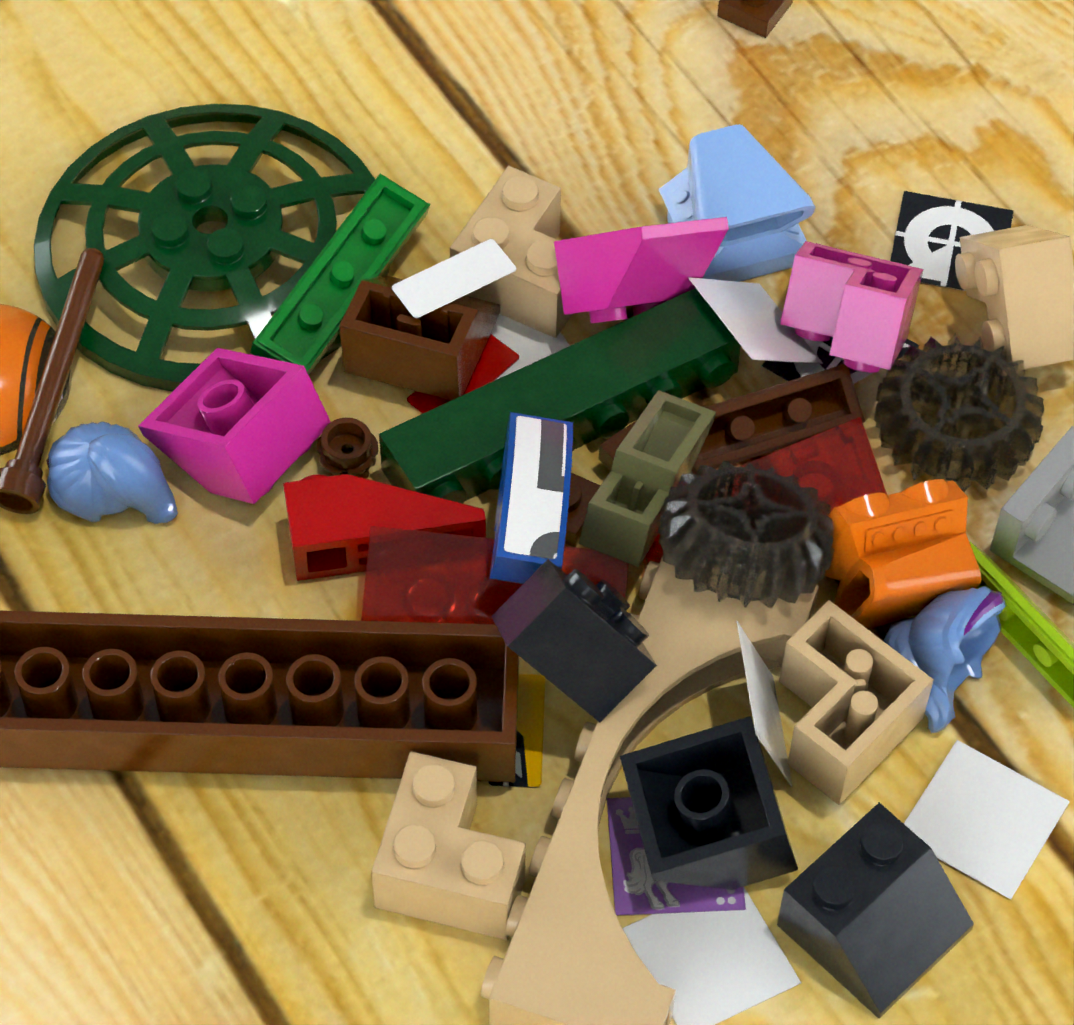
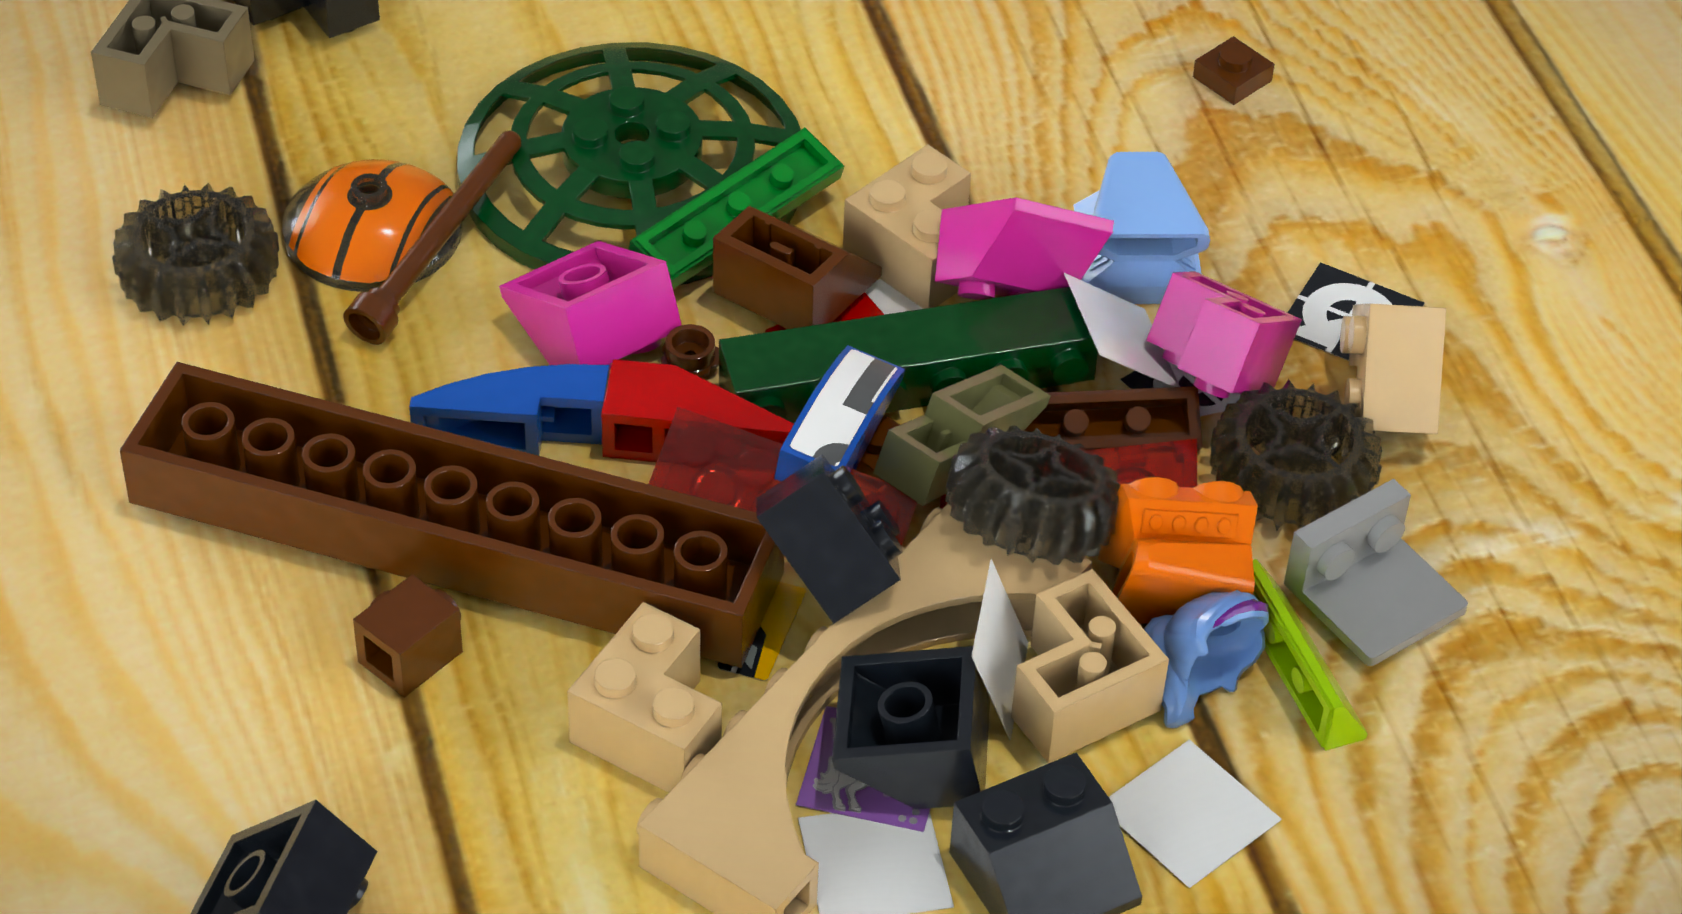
camera: 15 degrees right, 10 degrees down
(105, 472) = (457, 320): medium blue hair -> none
(181, 839) = (408, 634): none -> reddish brown brick
(199, 558) = (520, 406): none -> blue slope
(453, 278) = (836, 222): white sticker -> none

